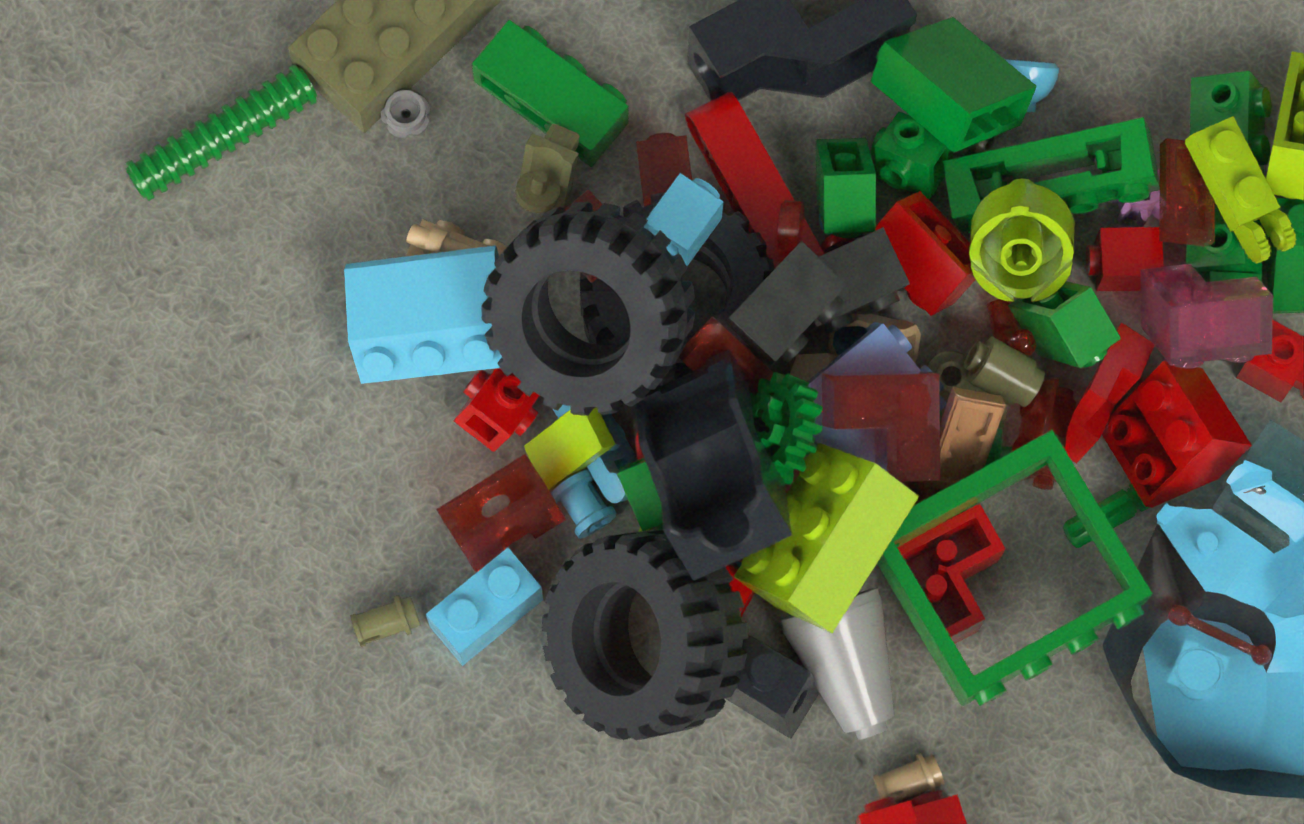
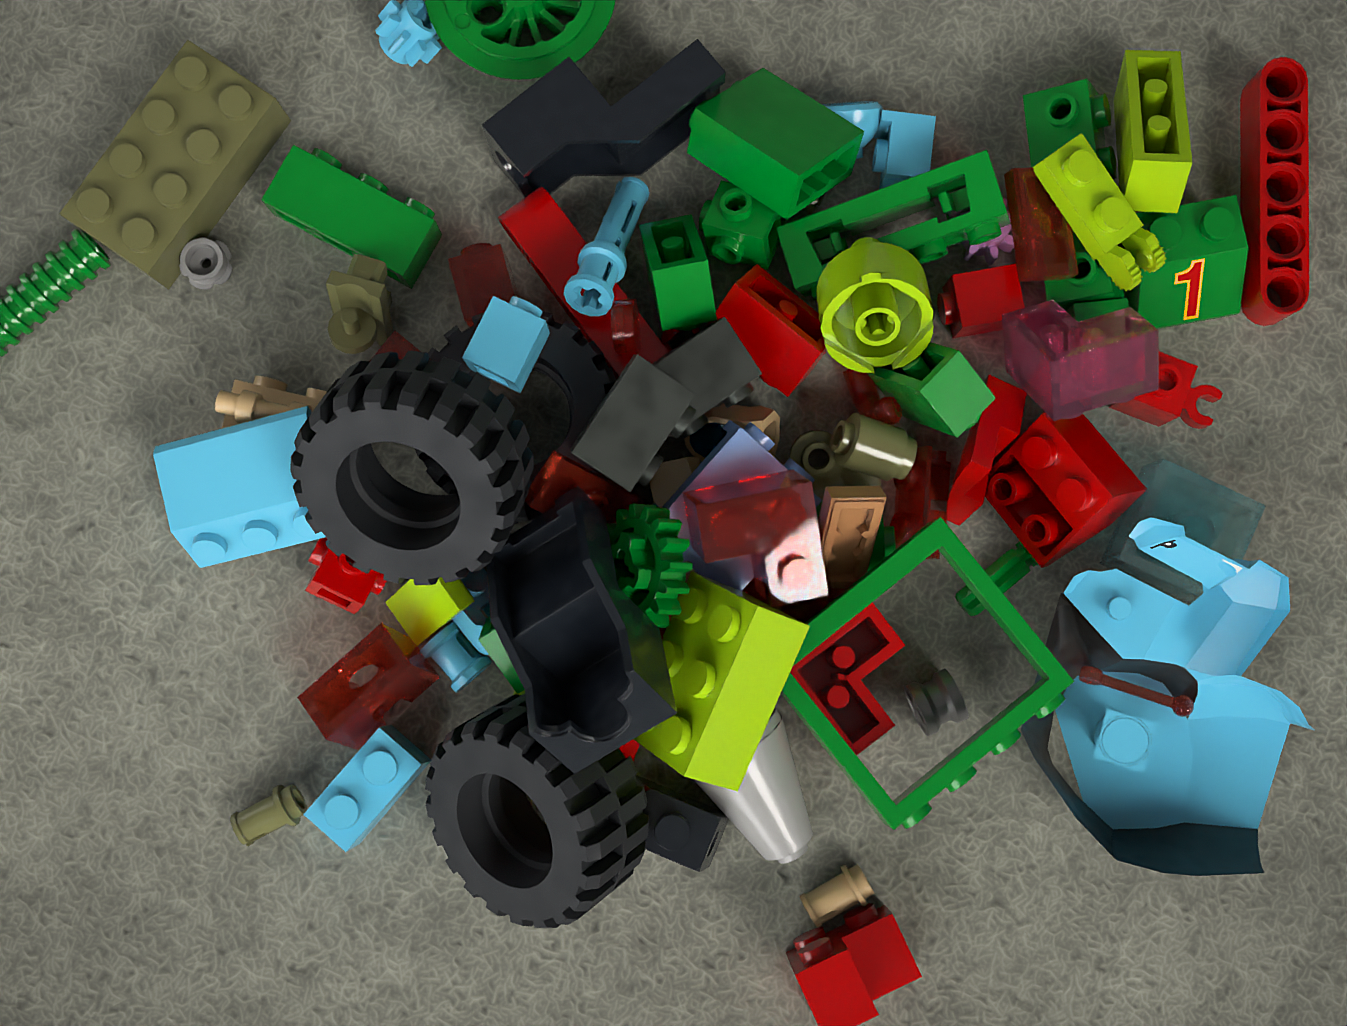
camera: 10 degrees left, 10 degrees up
(780, 163) = (603, 260): none -> medium azure pin
(1028, 616) = (936, 702): none -> flat silver wheel
(1073, 104) = (905, 146): none -> medium azure brick

